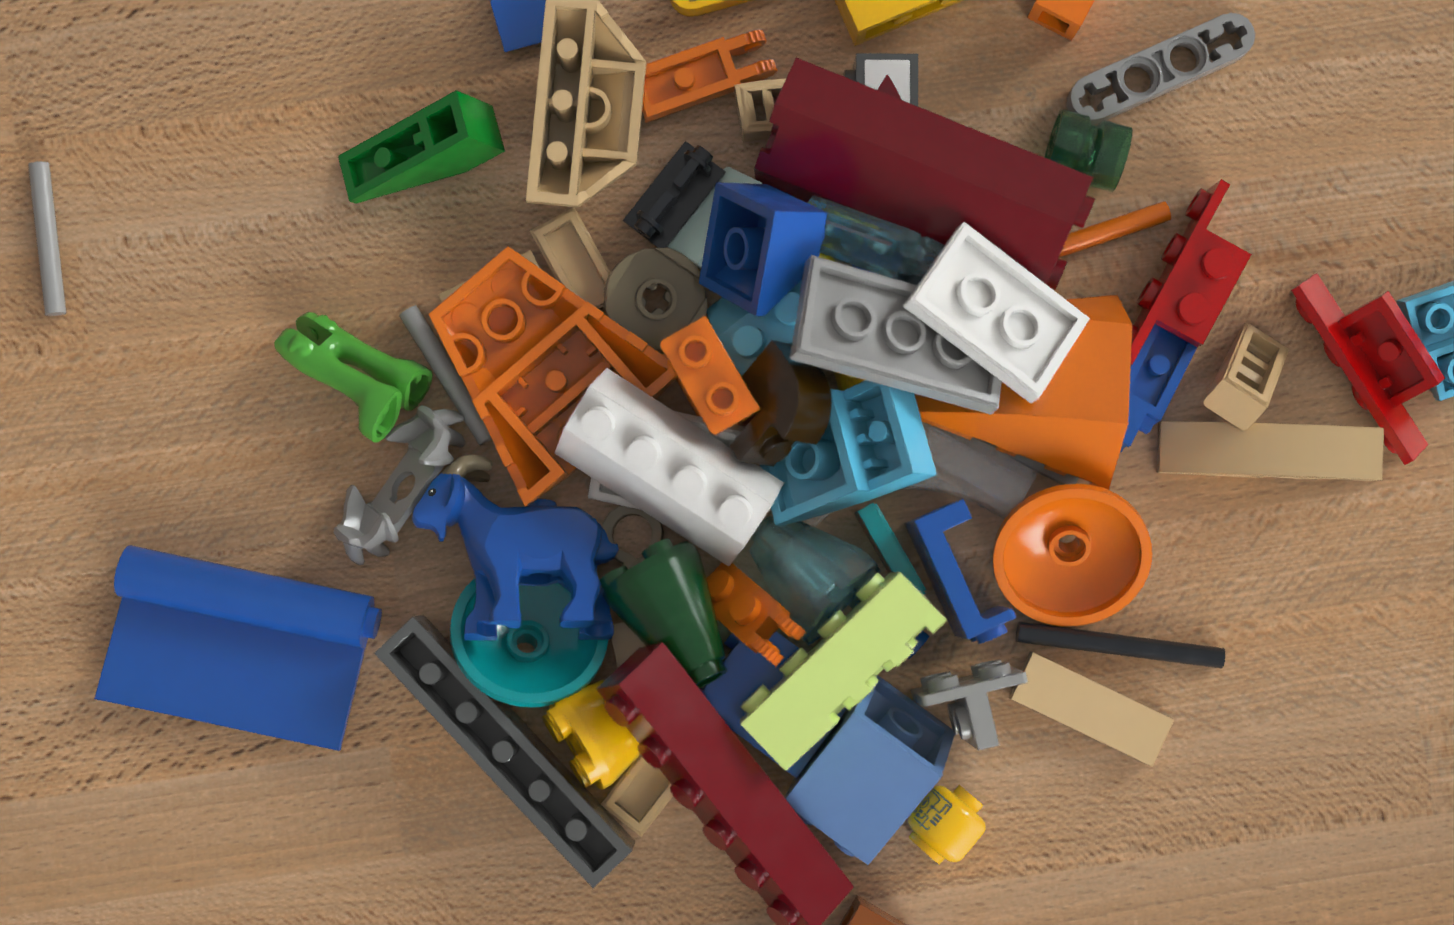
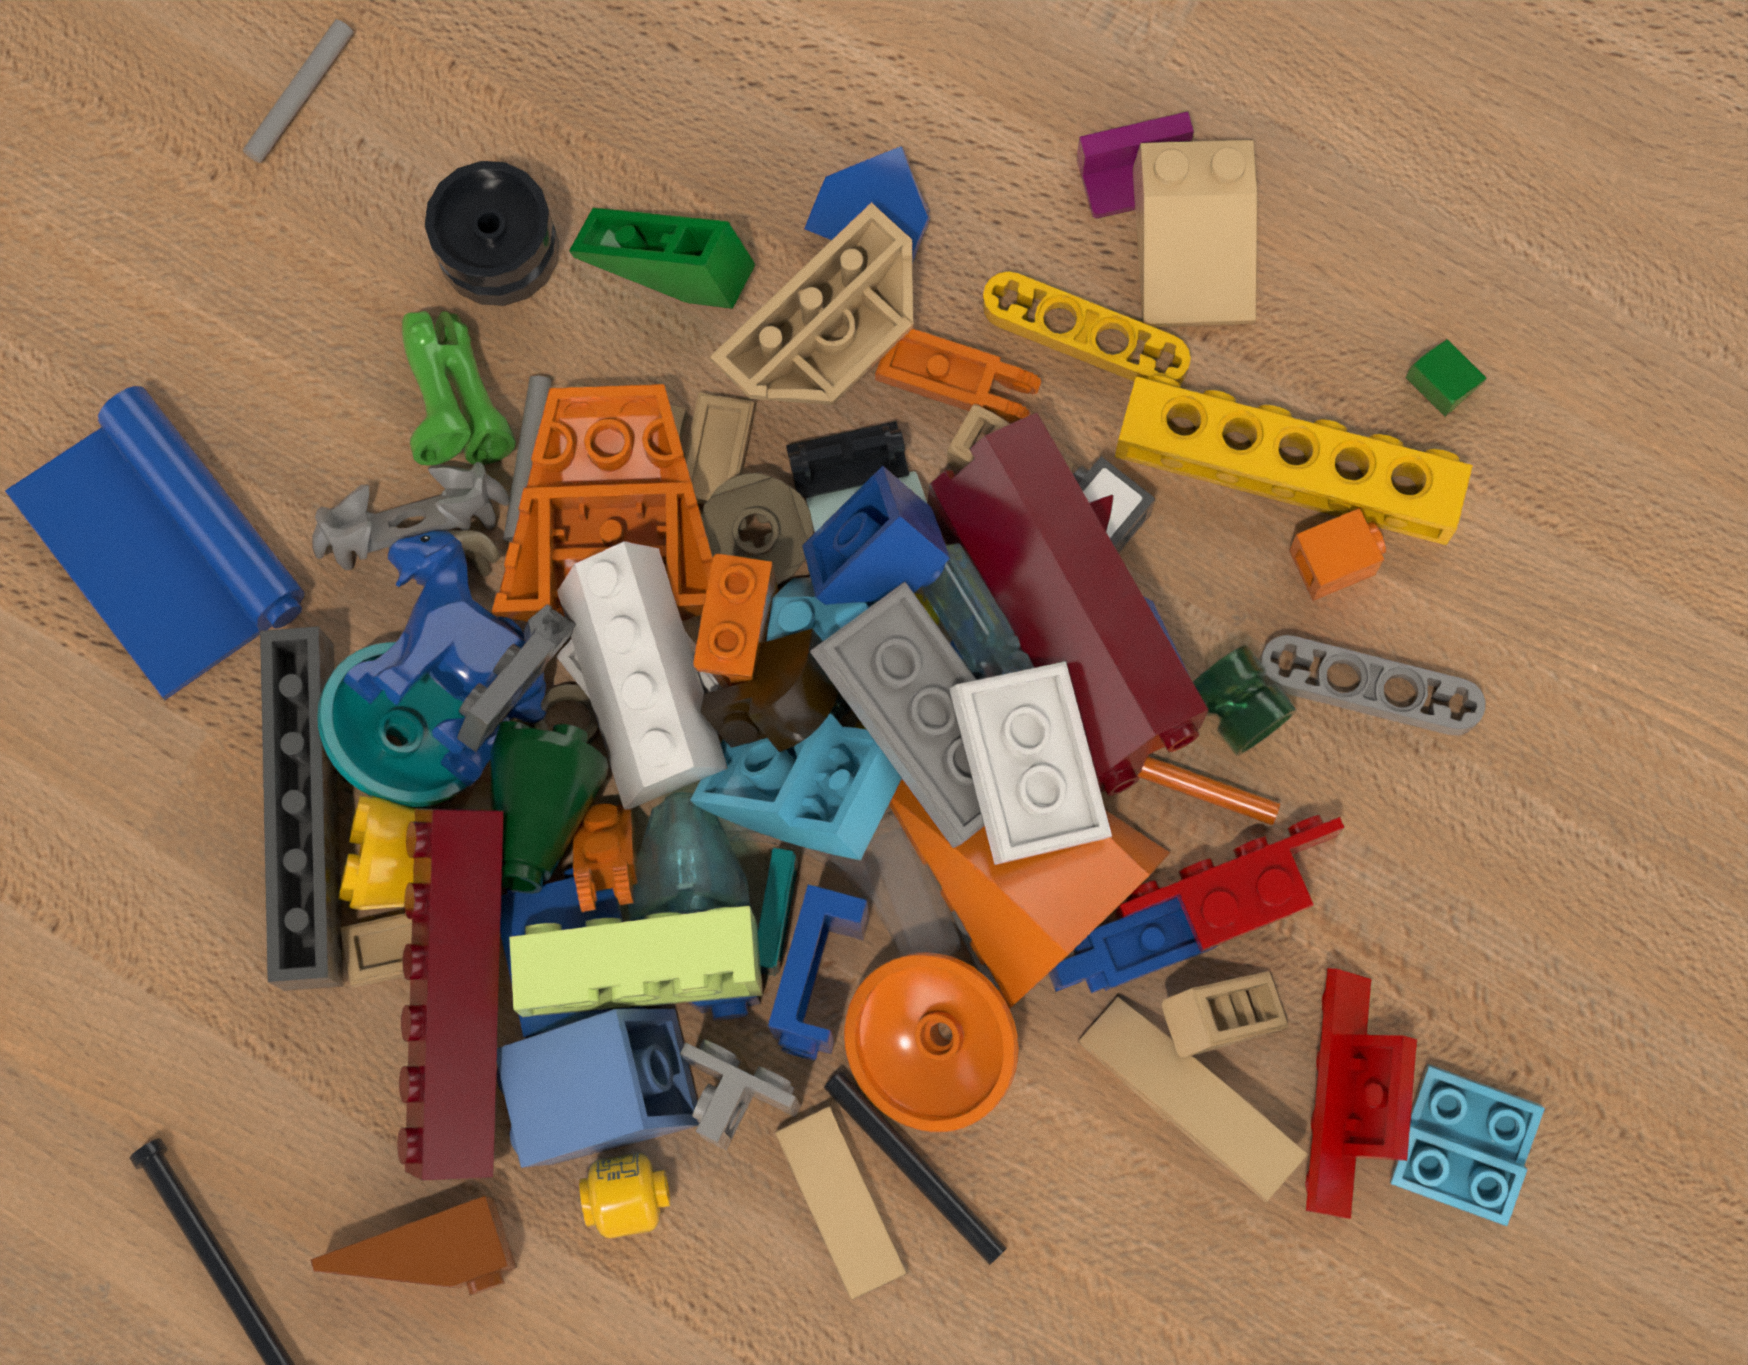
camera: 45 degrees right, 10 degrees down
(258, 239) = (492, 233): none -> black wheel
(583, 534) = (515, 675): none -> dark grey hinge

